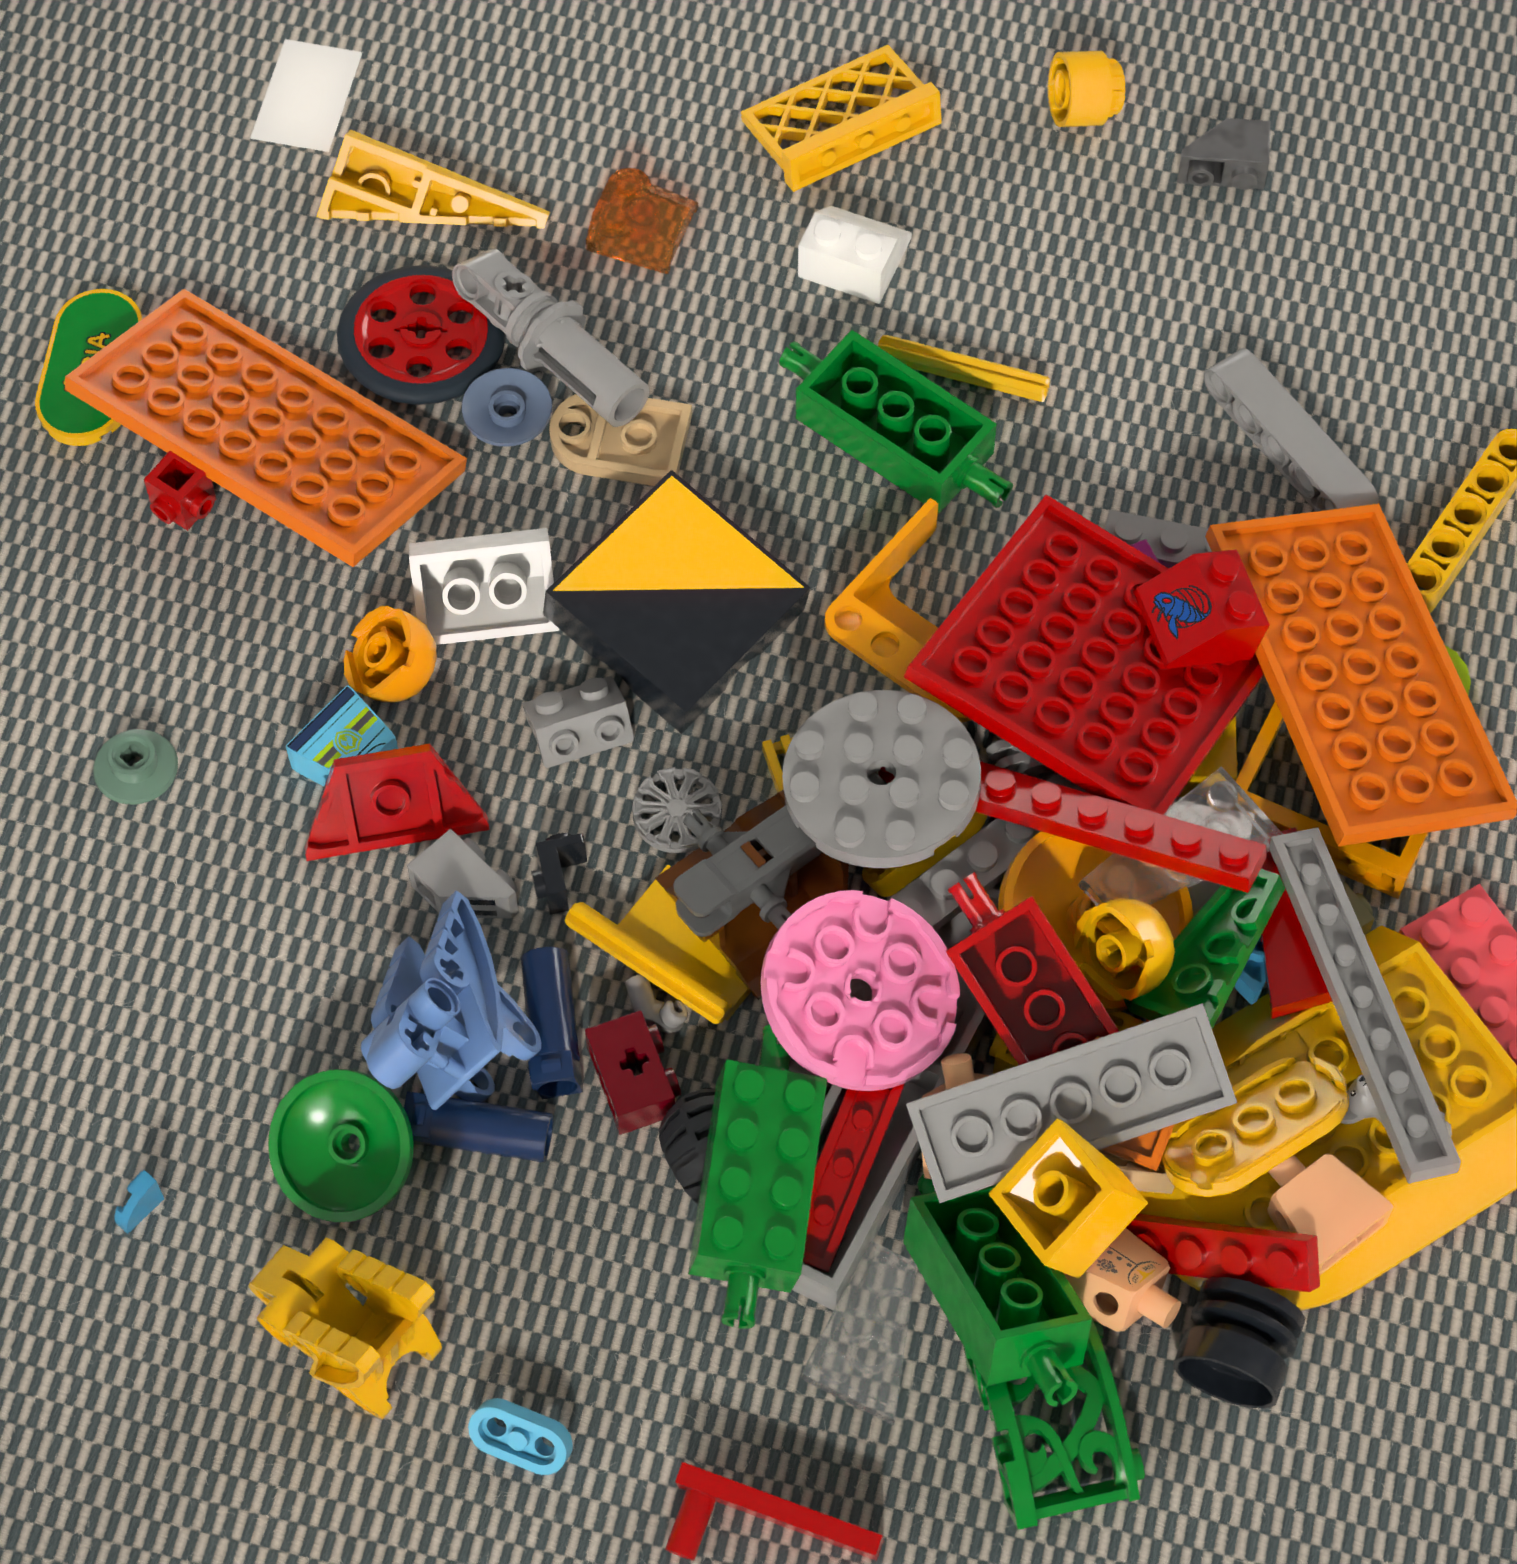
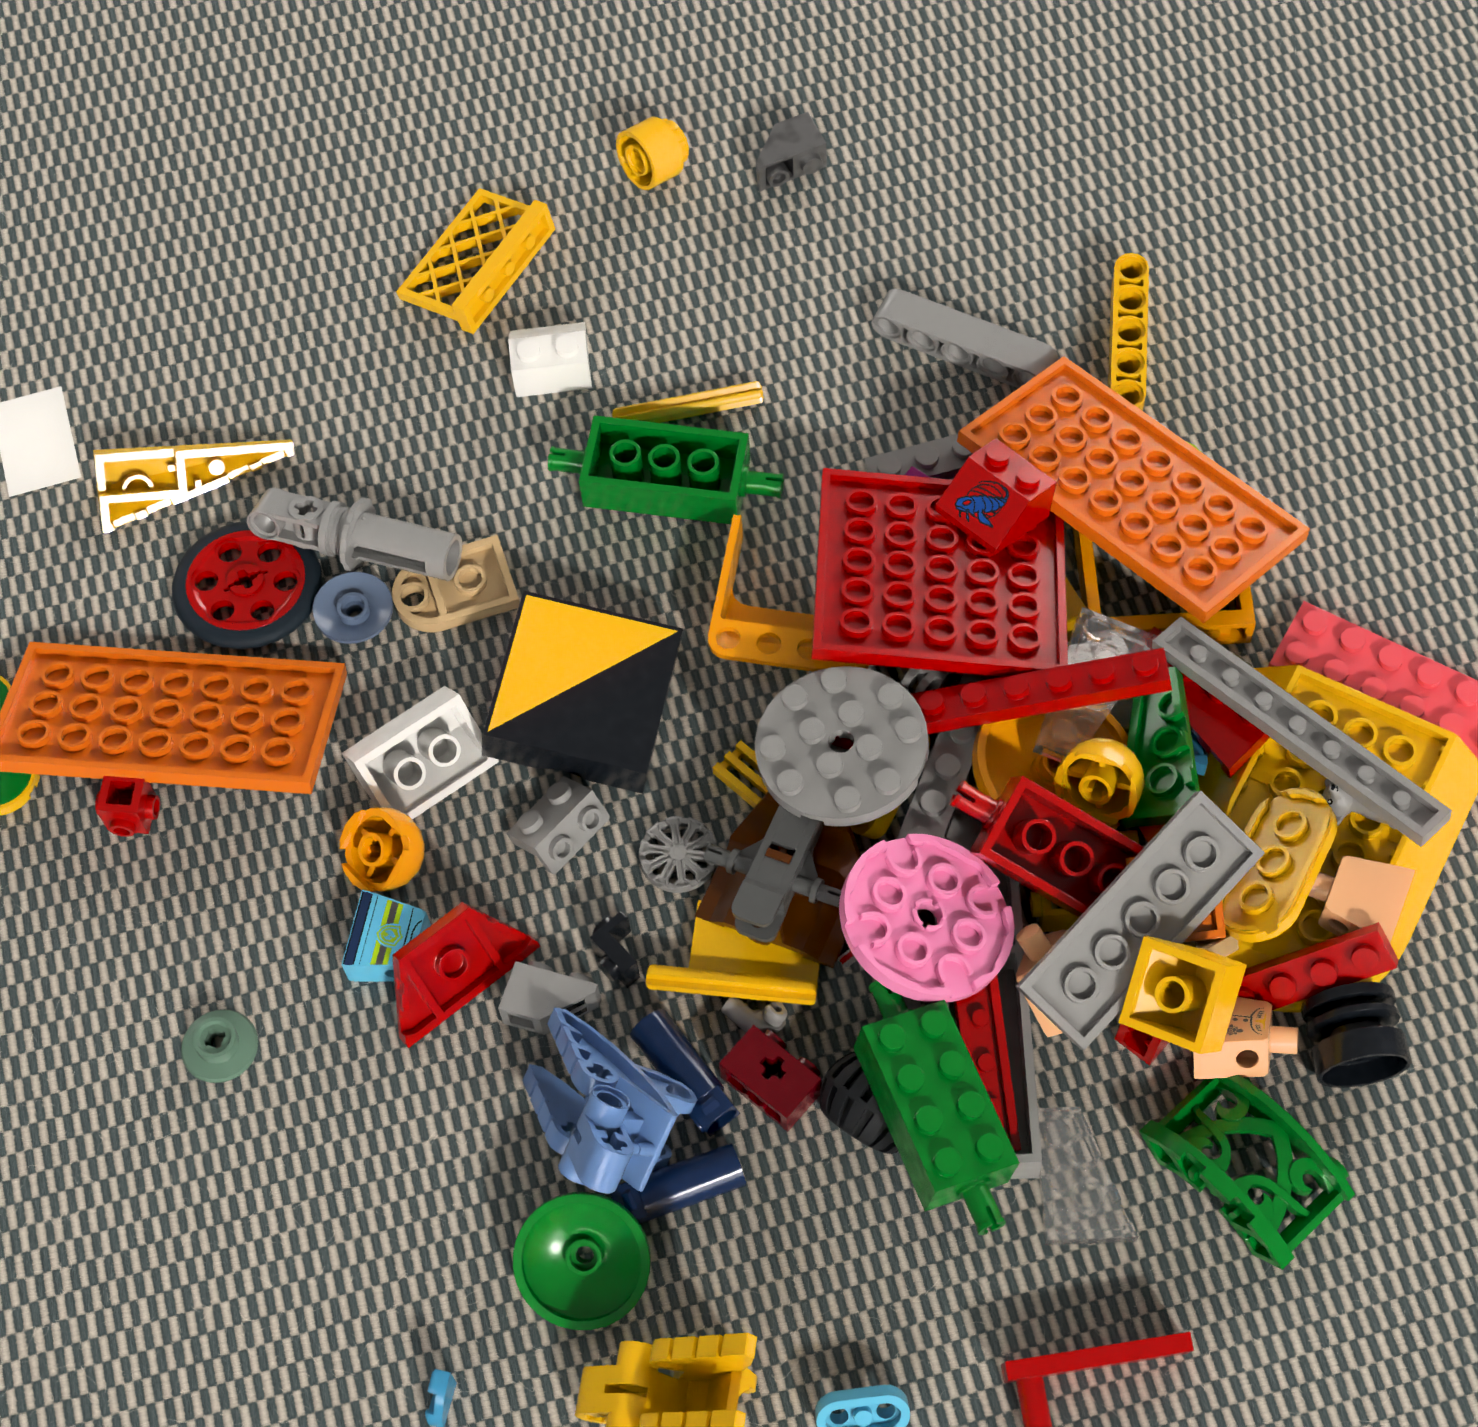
camera: 25 degrees left, 0 degrees up
(639, 221) = (368, 413): clear orange slope -> none
(997, 1292) = (1163, 1093): green brick -> none

